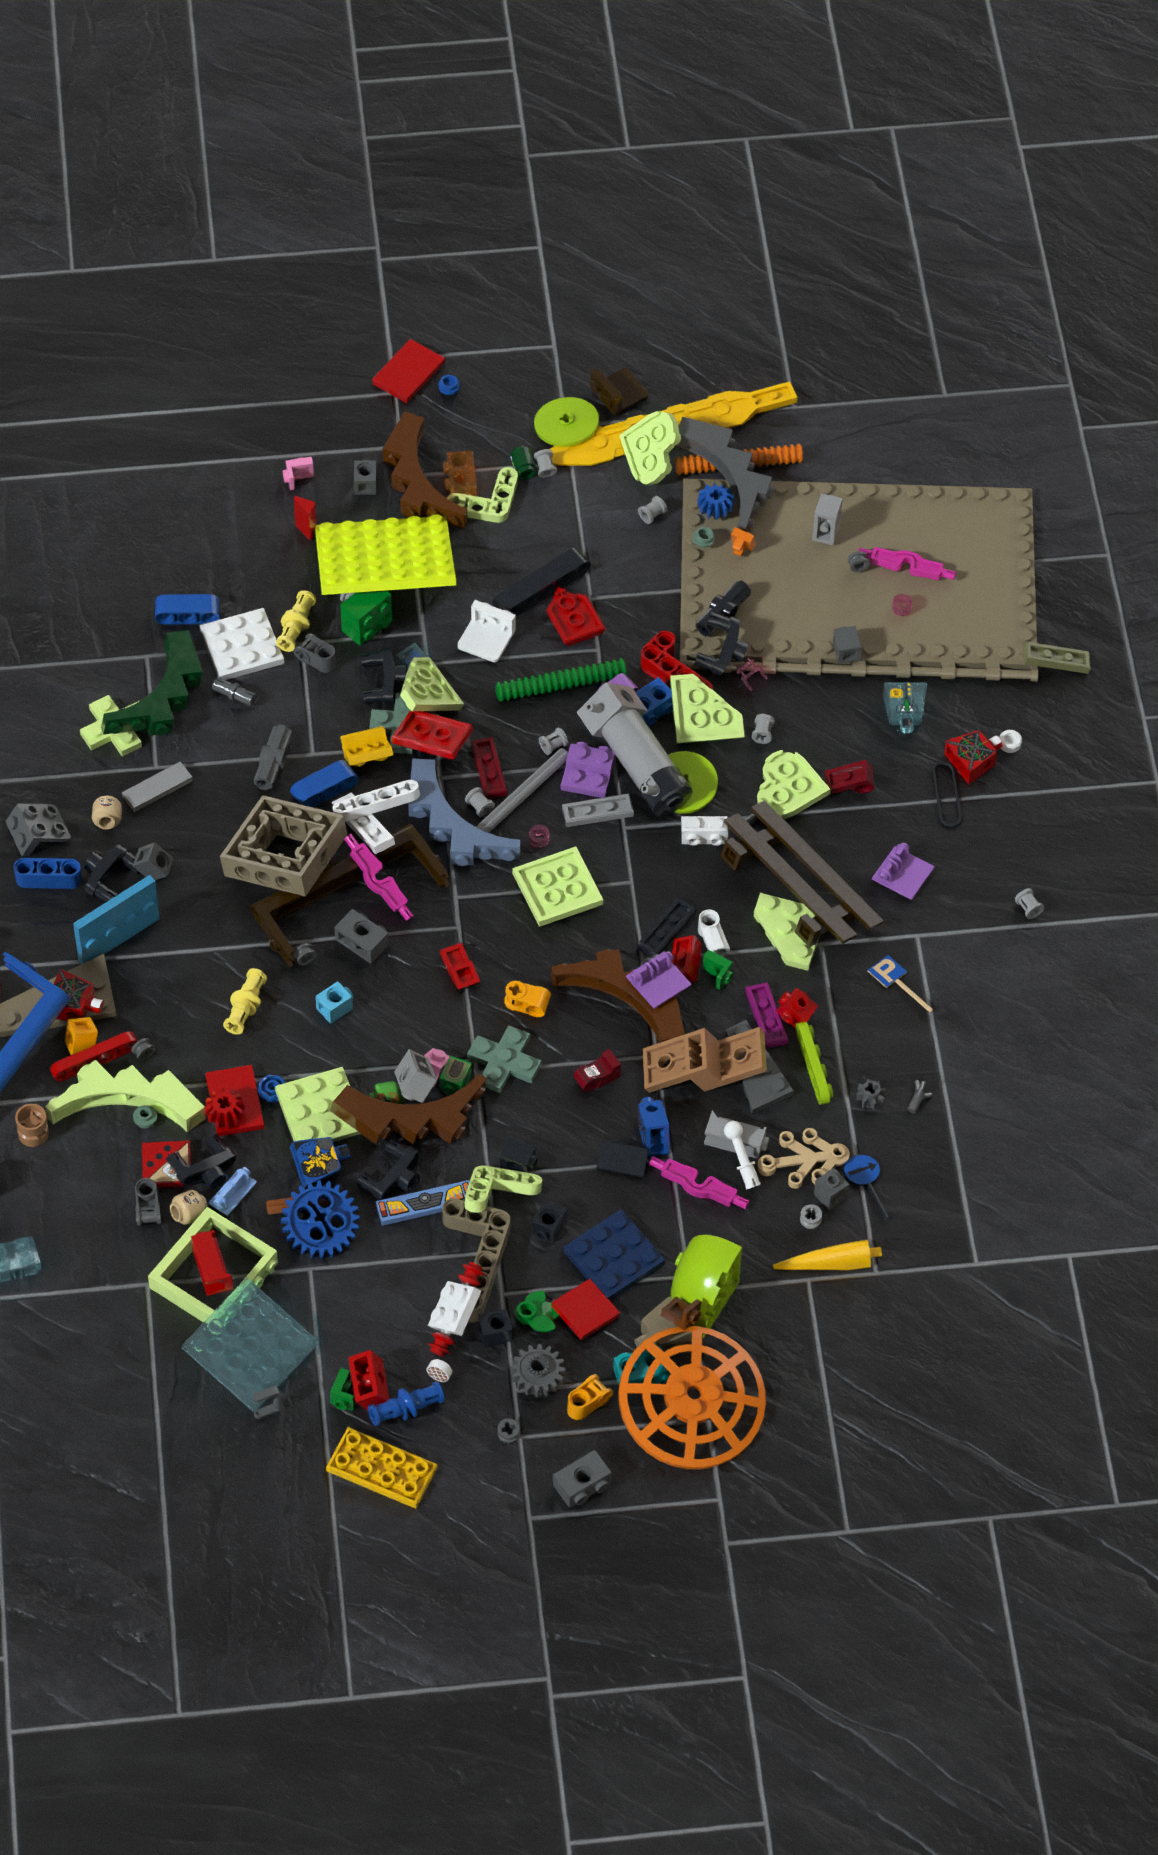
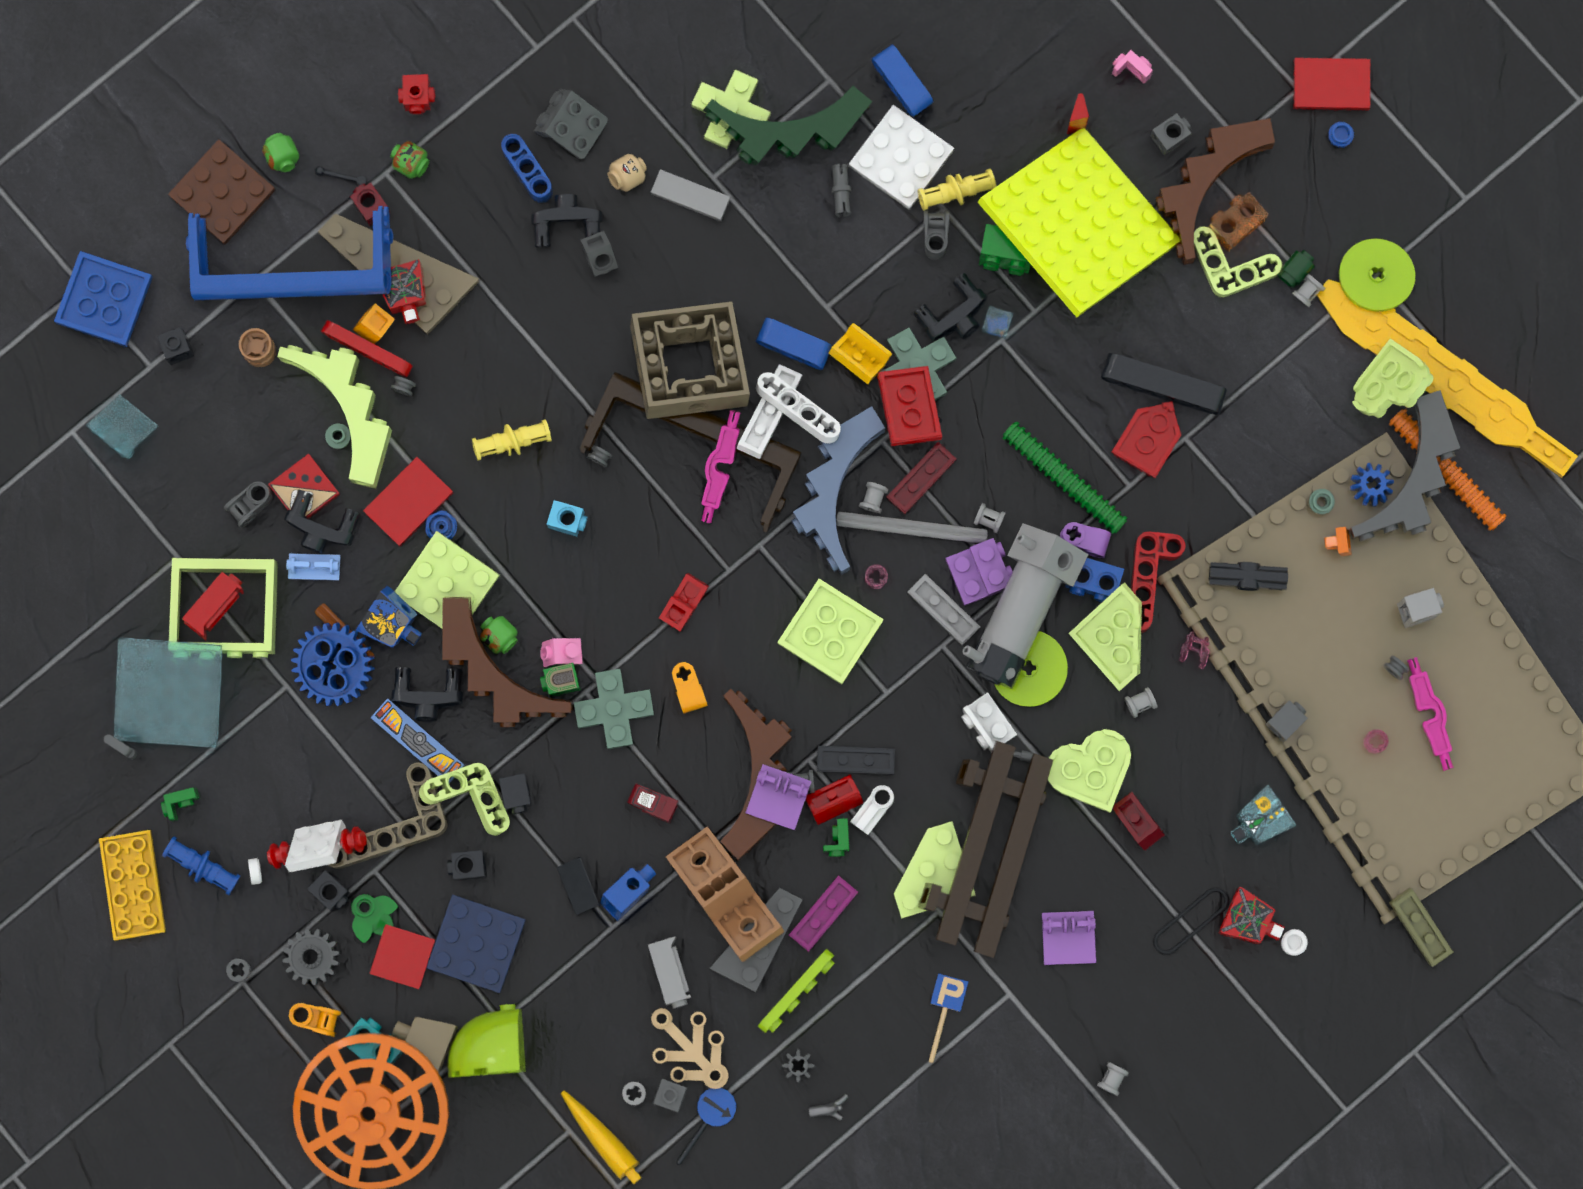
camera: 60 degrees right, 25 degrees up
(117, 920) = (504, 271): dark azure plate -> none
(187, 1206) = (269, 541): tan head -> none
(224, 1108) = (392, 507): red gear -> none
(272, 757) = (792, 276): dark grey piece -> none
(349, 933) = (649, 478): dark grey brick -> none
(368, 1379) = (199, 819): red brick -> none
(415, 1076) = (523, 650): light grey brick -> none
(427, 688) = (962, 364): yellowish green plate -> none
(487, 631) = (1068, 373): white bracket -> none
(588, 1467) = (218, 1057): dark grey brick -> none
(617, 390) = (1450, 298): dark brown bracket -> none
(652, 510) = (1326, 428): light grey bush -> none
(682, 1313) = (437, 1051): reddish brown bracket -> none
(710, 1188) = (604, 983): dark pink piece -> none
(731, 648) = (1205, 615): black connector -> none
(733, 1131) = (641, 1003): white pin -> none
(796, 1007) = (842, 938): red brick -> none

